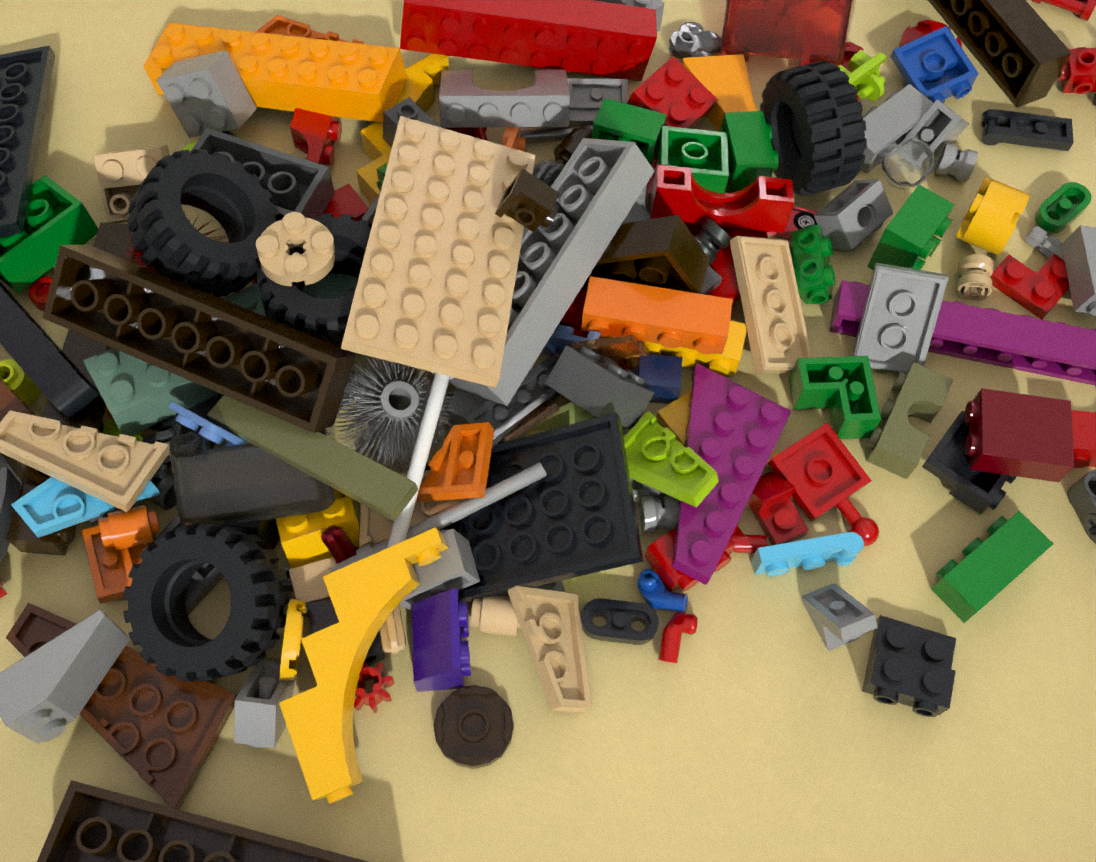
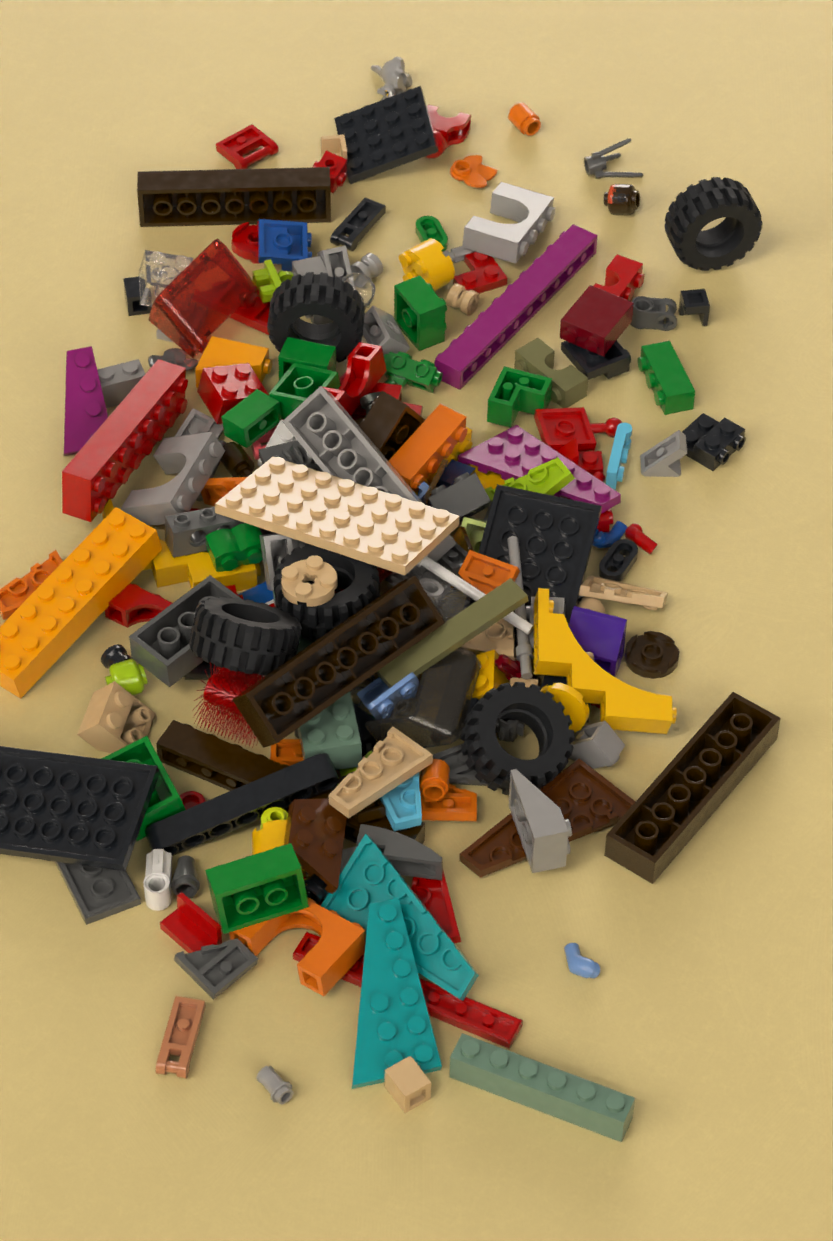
camera: 65 degrees left, 15 degrees down
(207, 93) = (74, 643): light grey brick -> none
(528, 201) = (336, 459): dark brown brick -> none
(770, 303) = (431, 396): tan tile -> none
(899, 317) = (483, 341): light grey tile -> none

